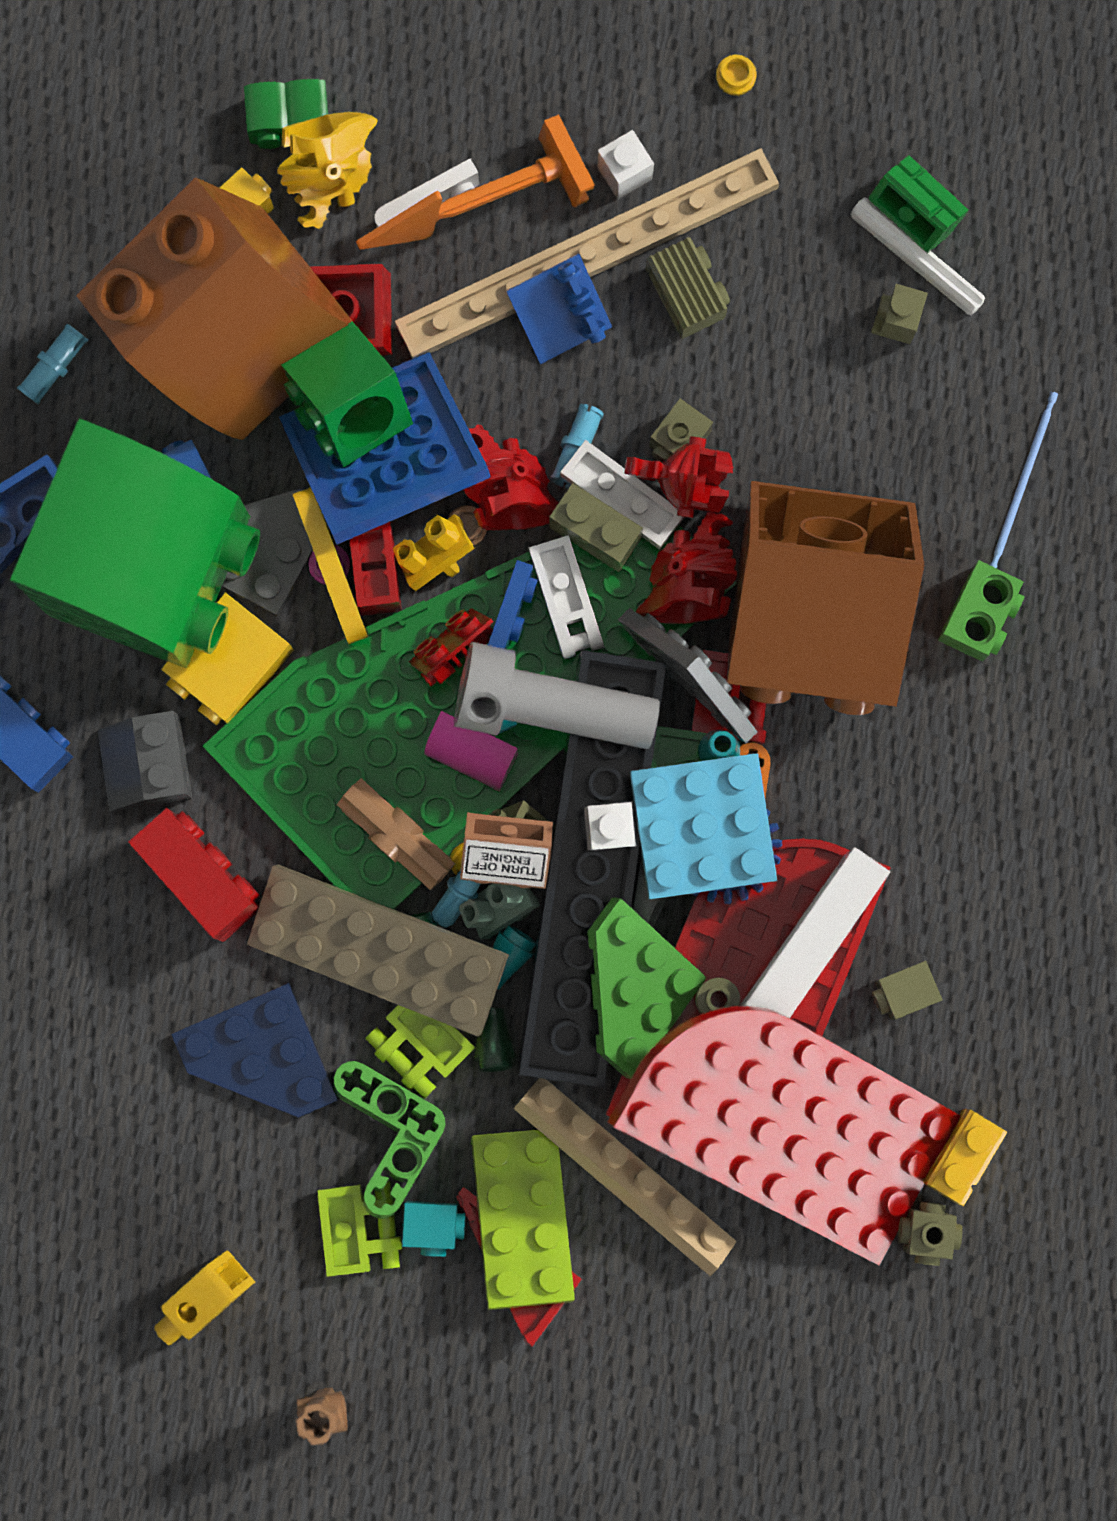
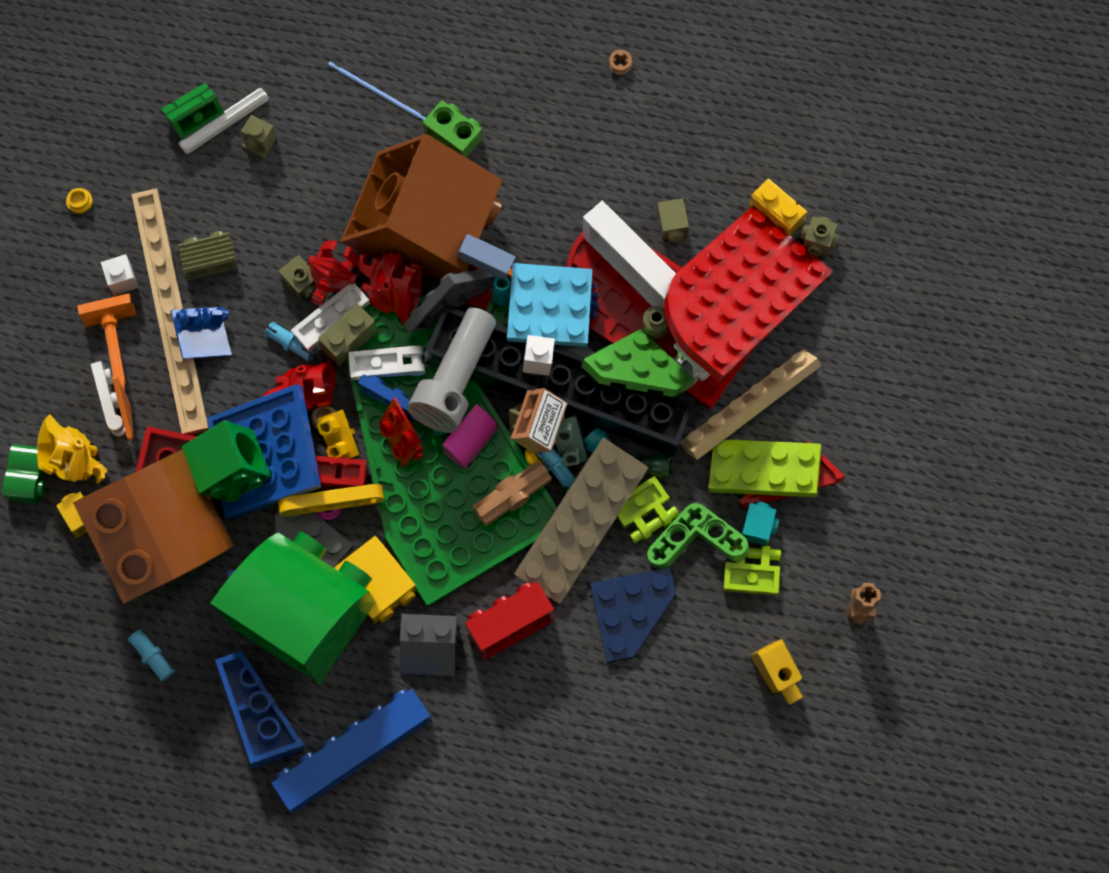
camera: 75 degrees left, 10 degrees down
(756, 709) = (485, 256): none -> sand blue slope

